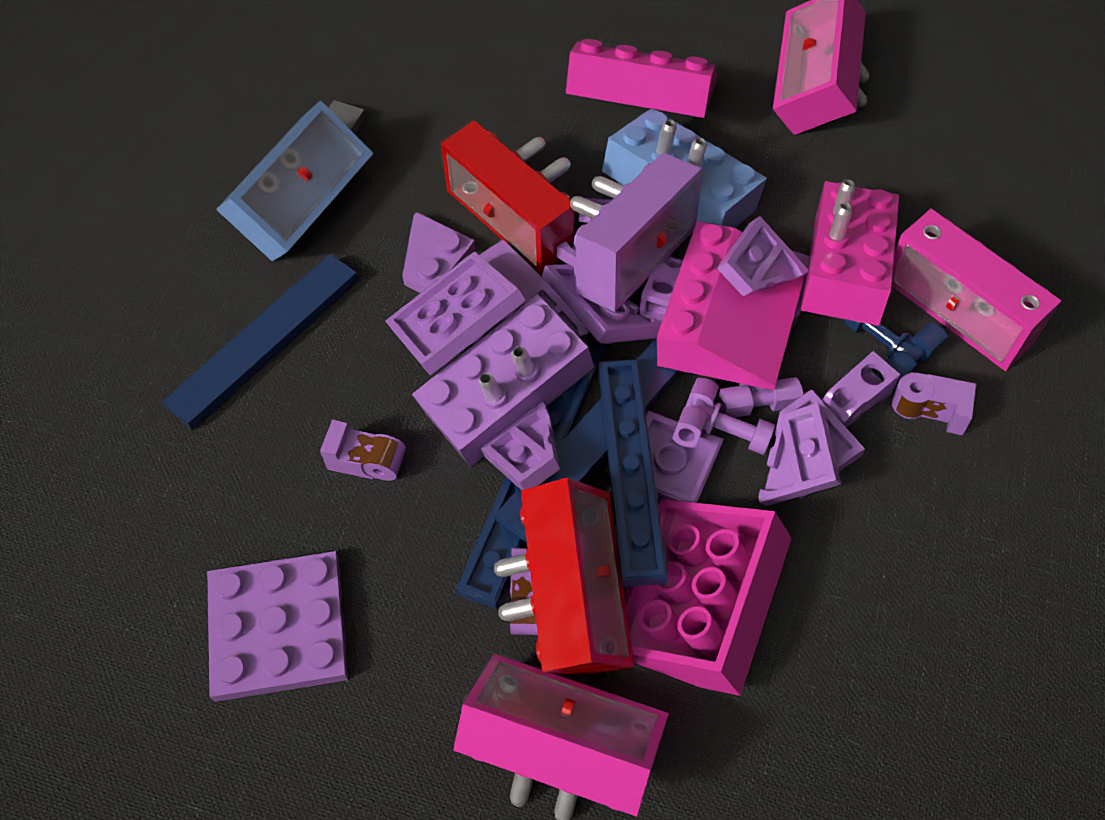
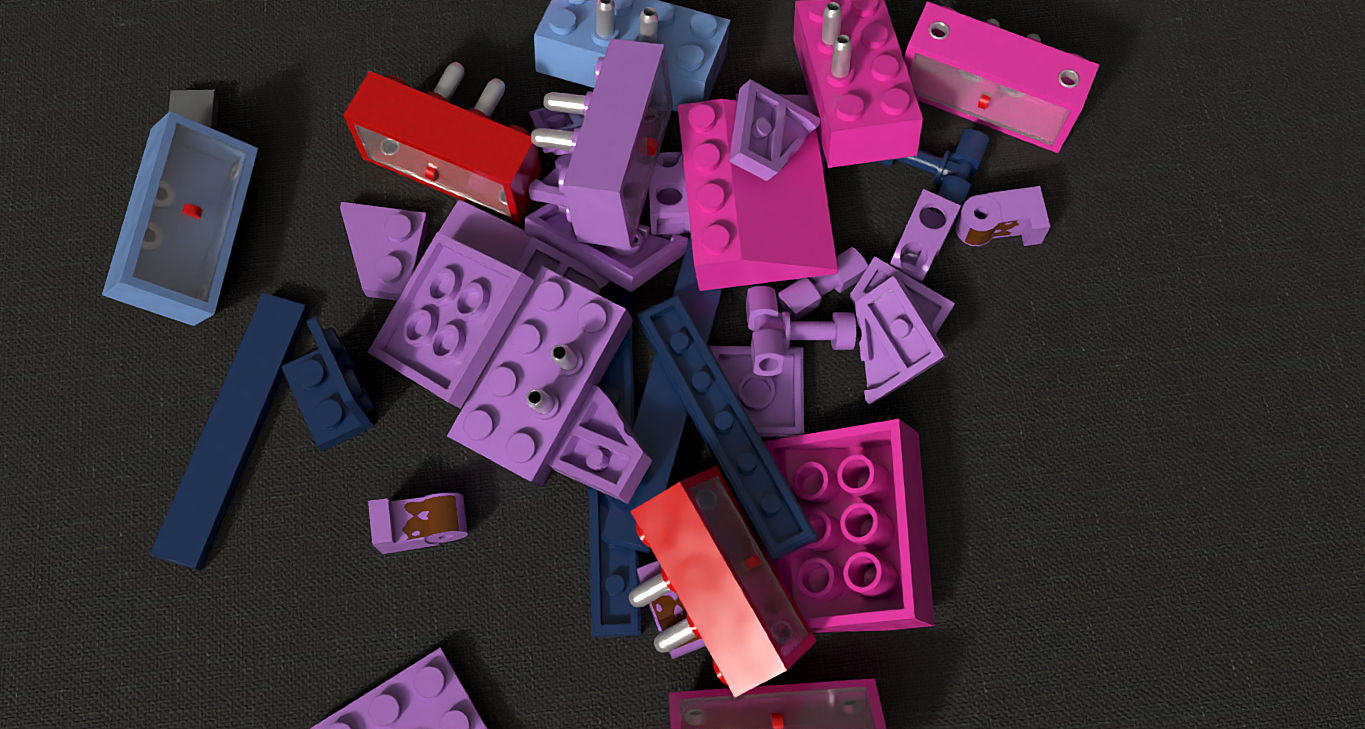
camera: 25 degrees left, 10 degrees up
(342, 335) = (329, 390): none -> dark blue bracket

